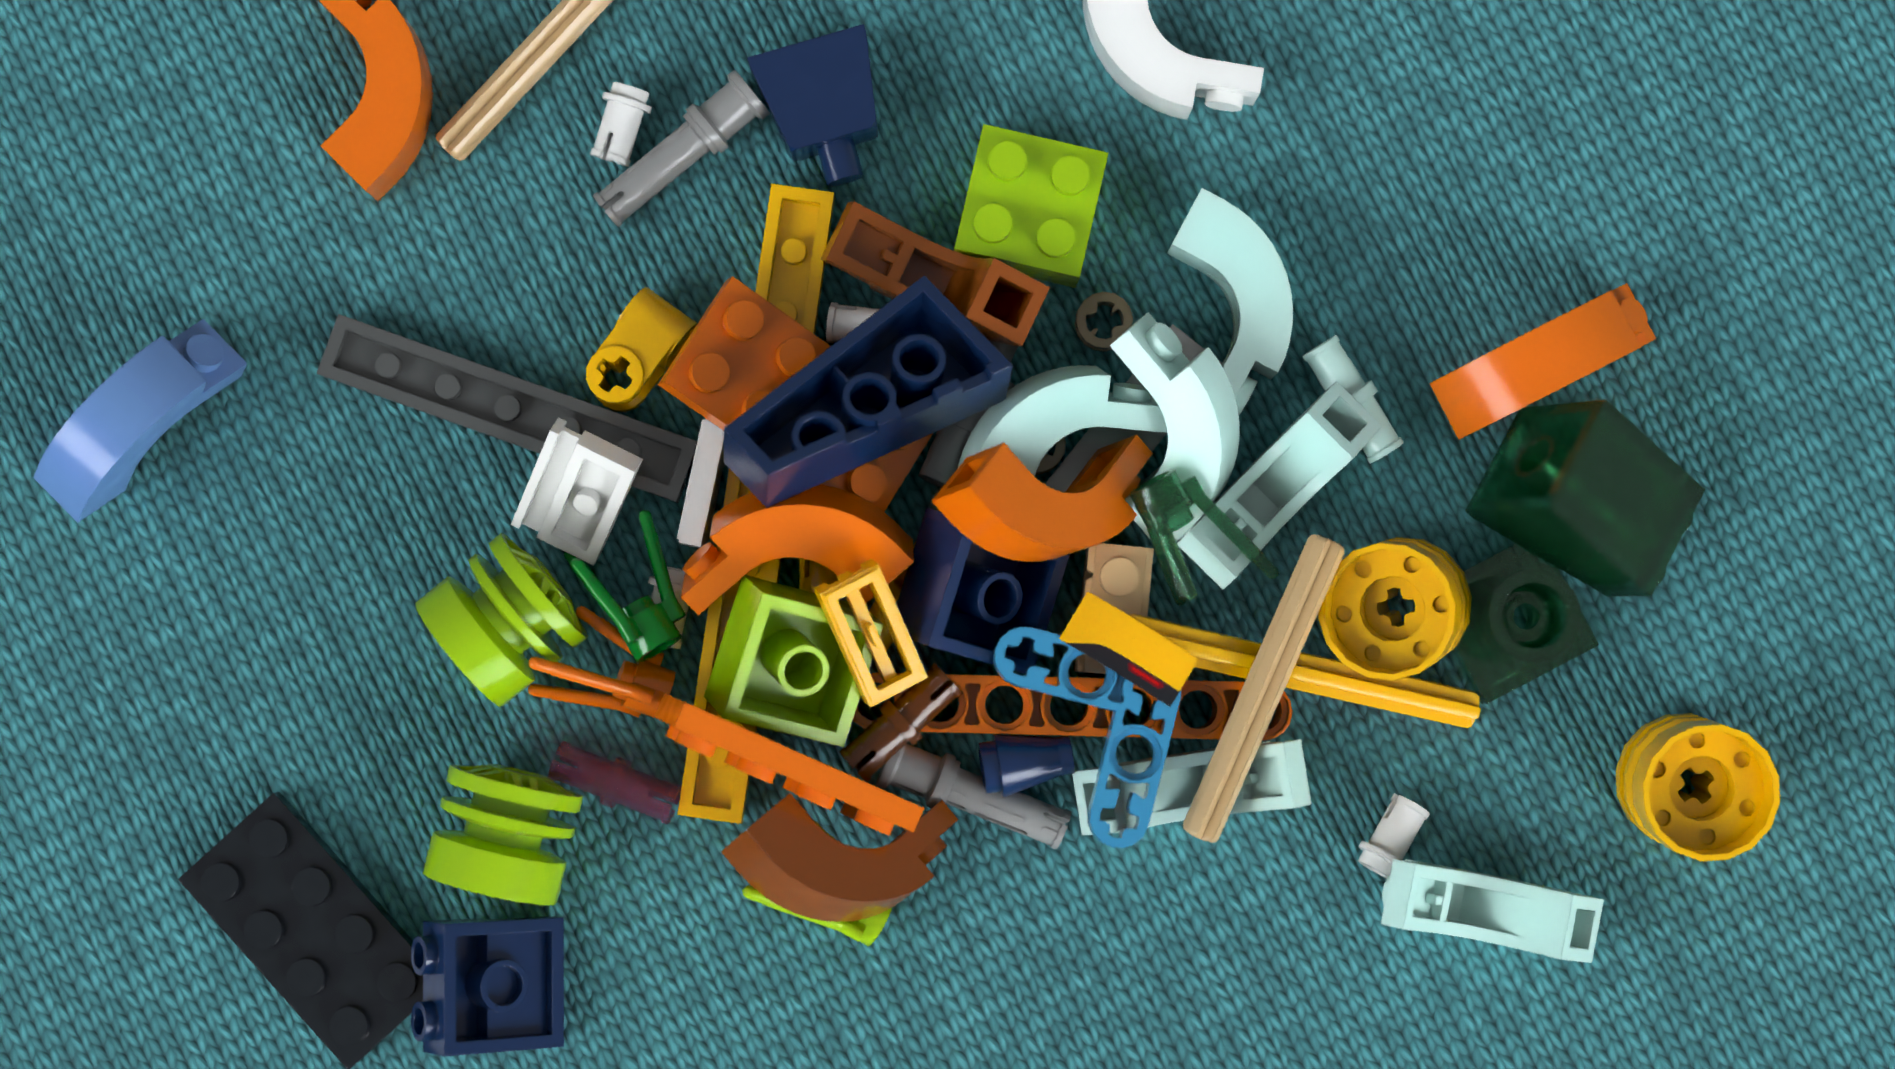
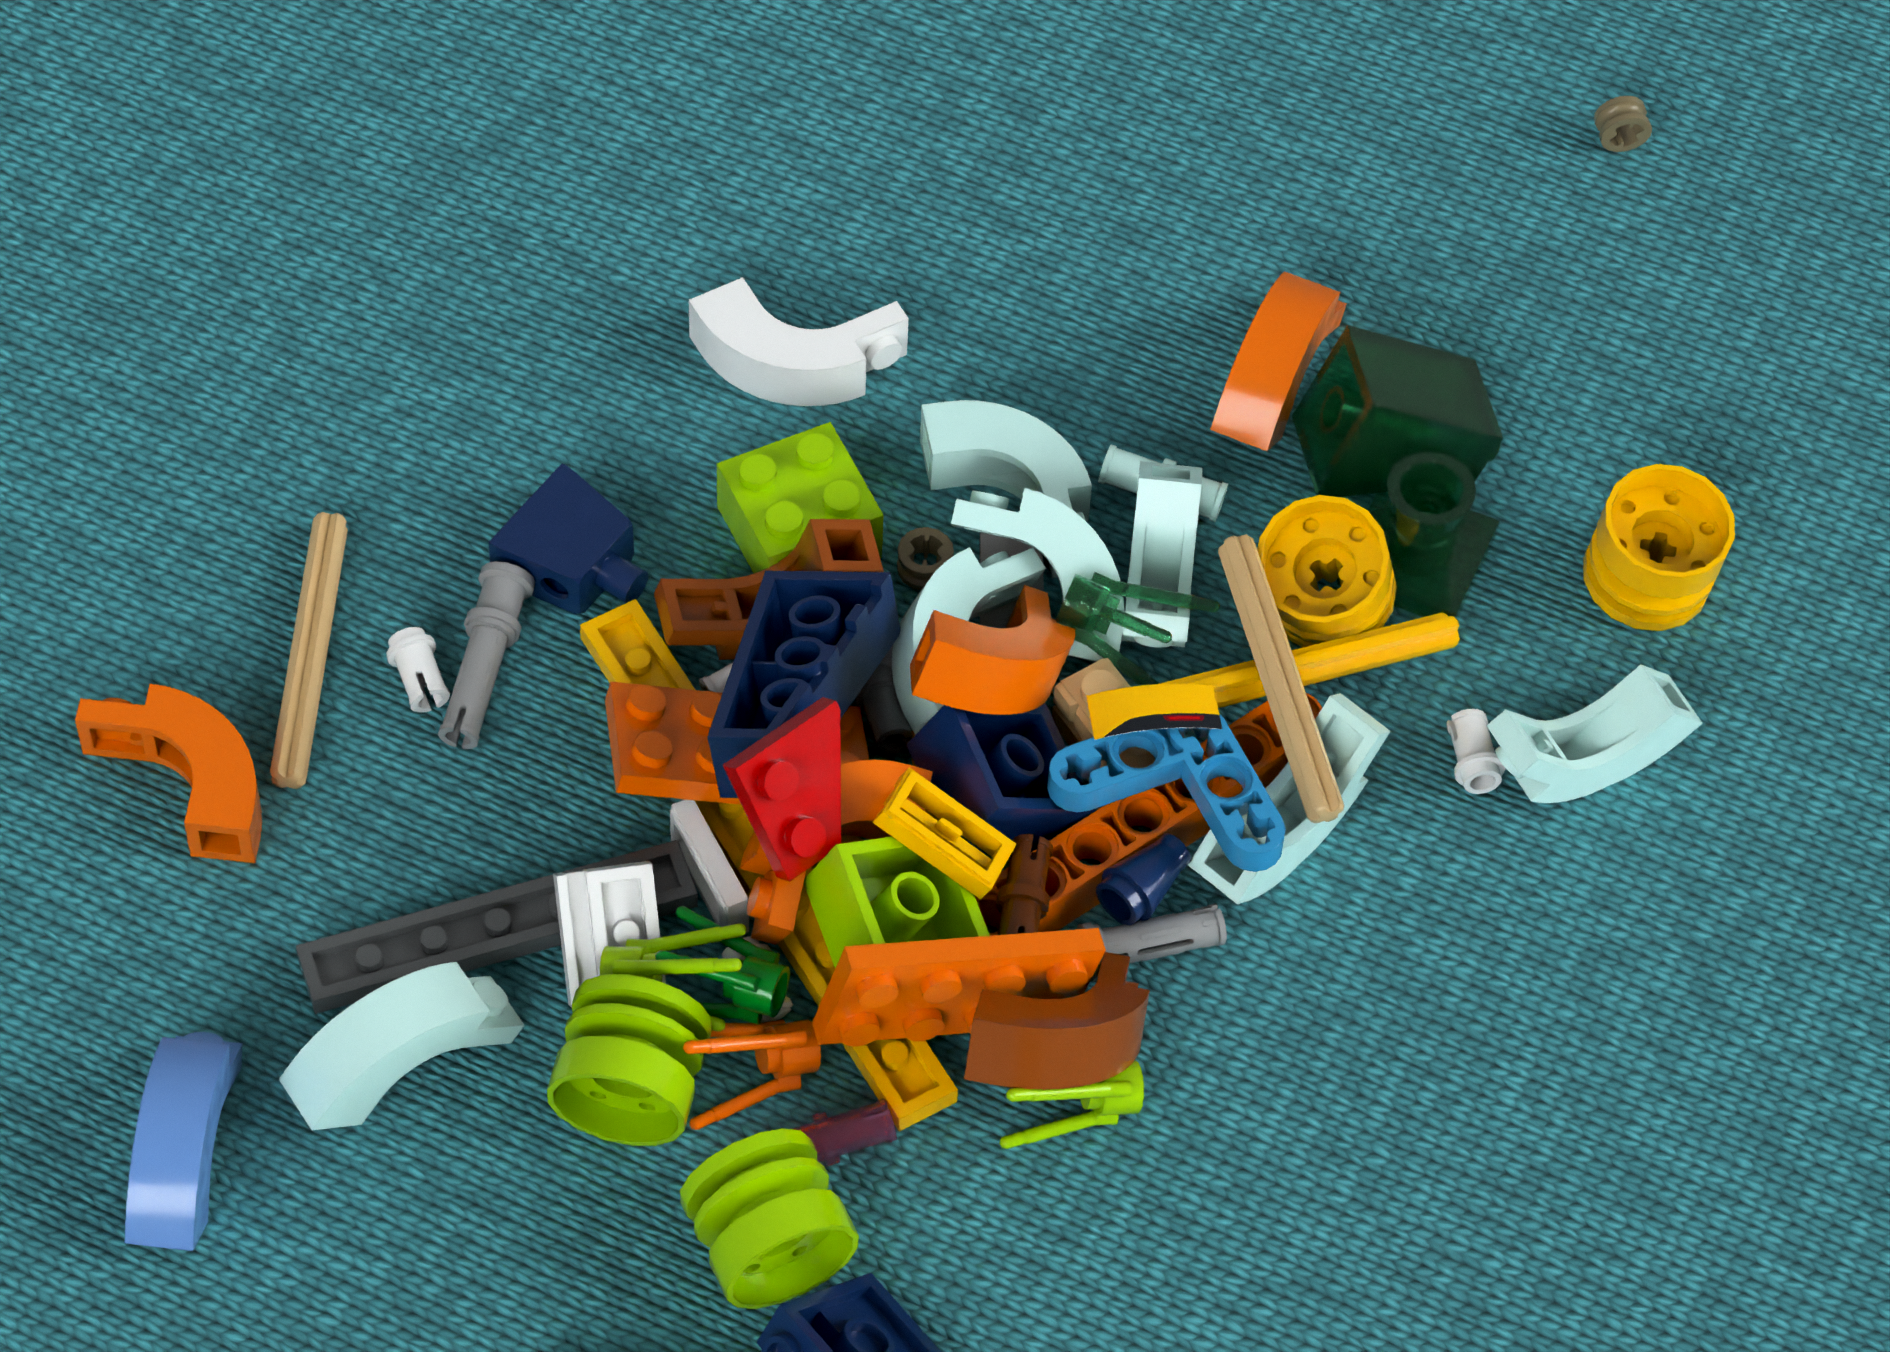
camera: 40 degrees left, 30 degrees down
(354, 464) = (388, 1034): none -> light aqua arch
(559, 540) = (639, 957): none -> lime plant
(643, 341) = (572, 811): yellow piece -> none
(763, 521) = (794, 788): none -> red wing

